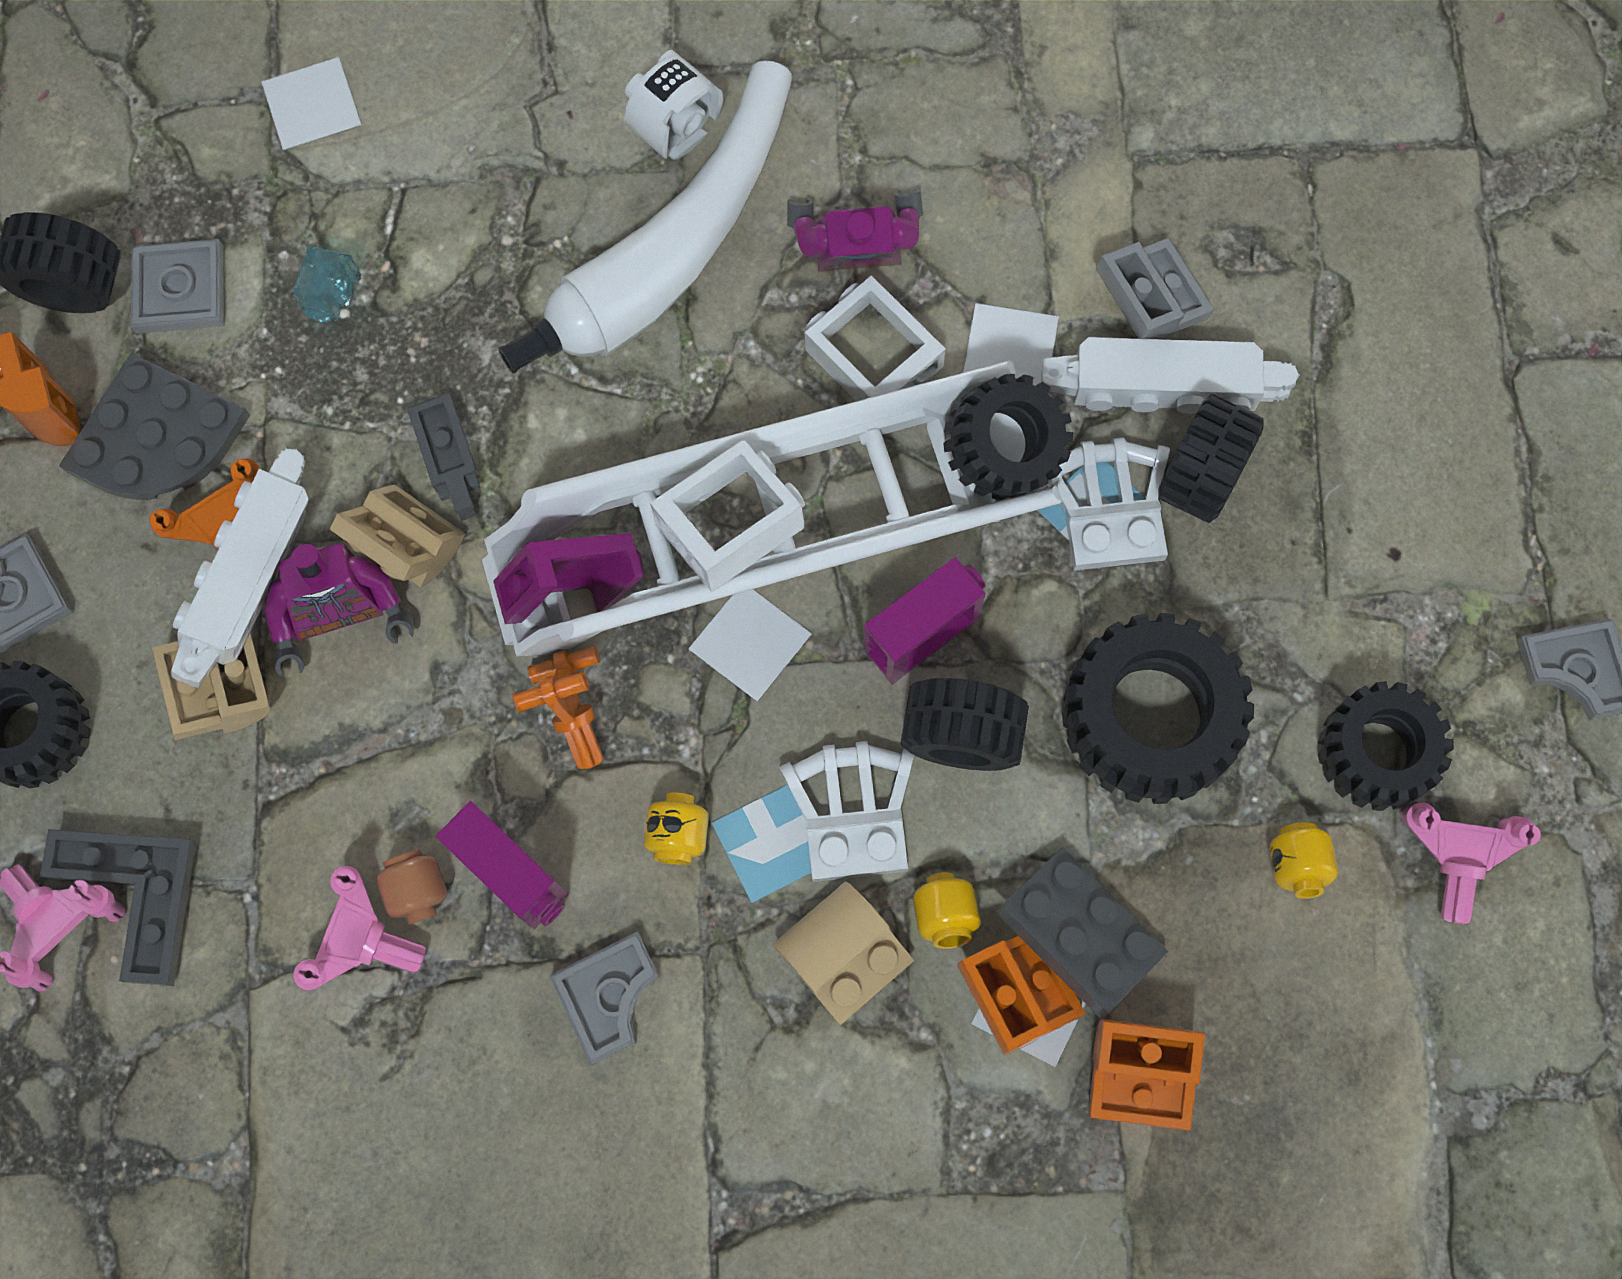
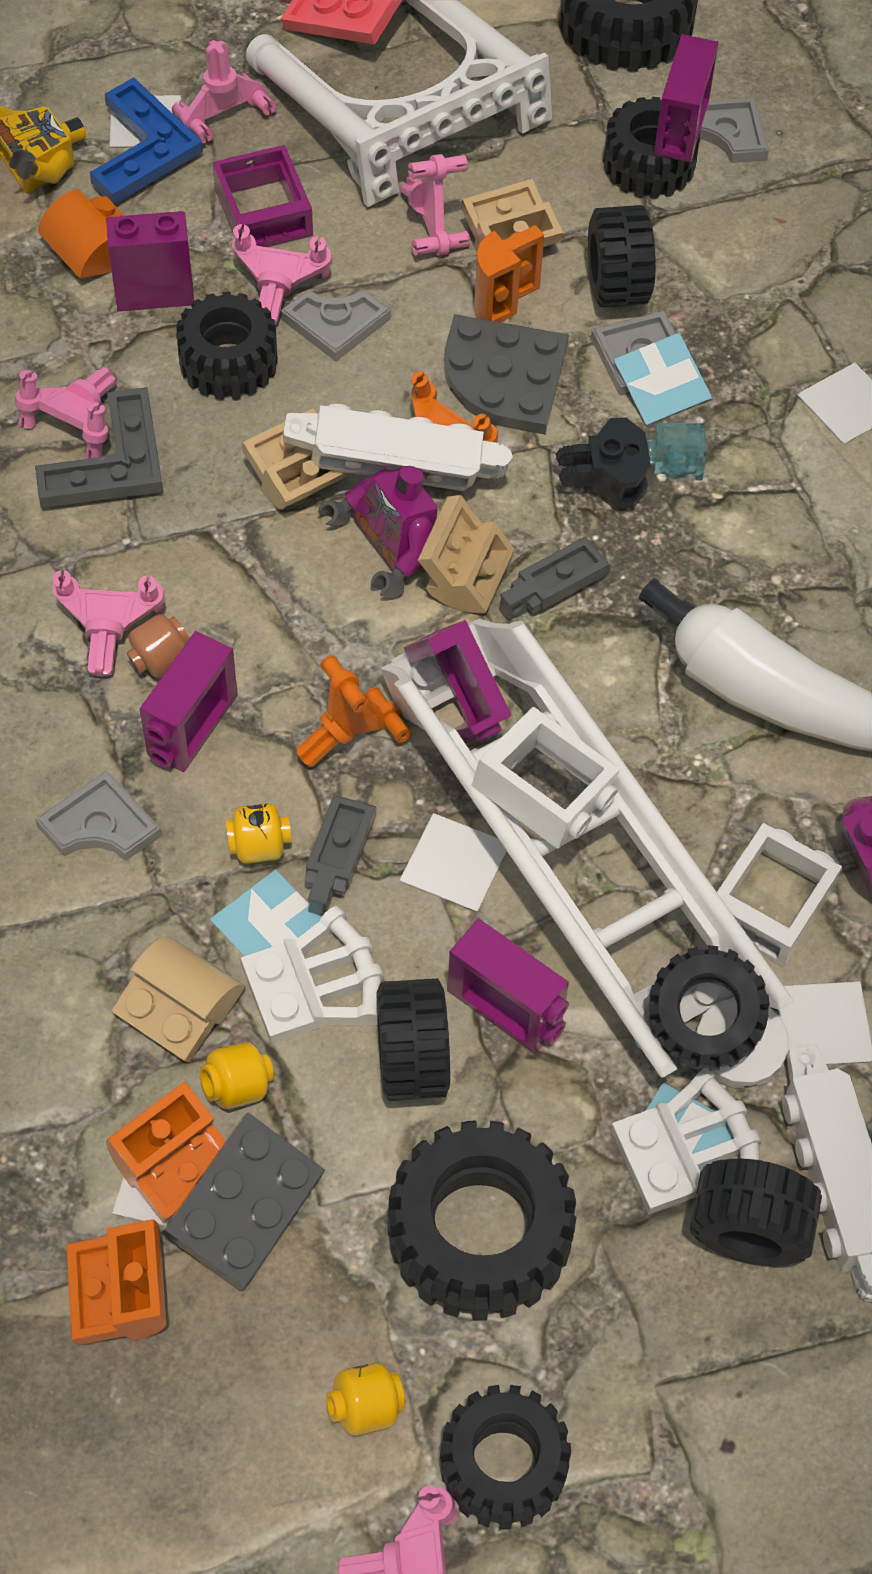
camera: 70 degrees right, 15 degrees down
(223, 273) = (662, 378): none -> medium azure sticker
(323, 353) = (610, 463): none -> black hinge
(713, 753) = (337, 850): none -> dark grey hinge

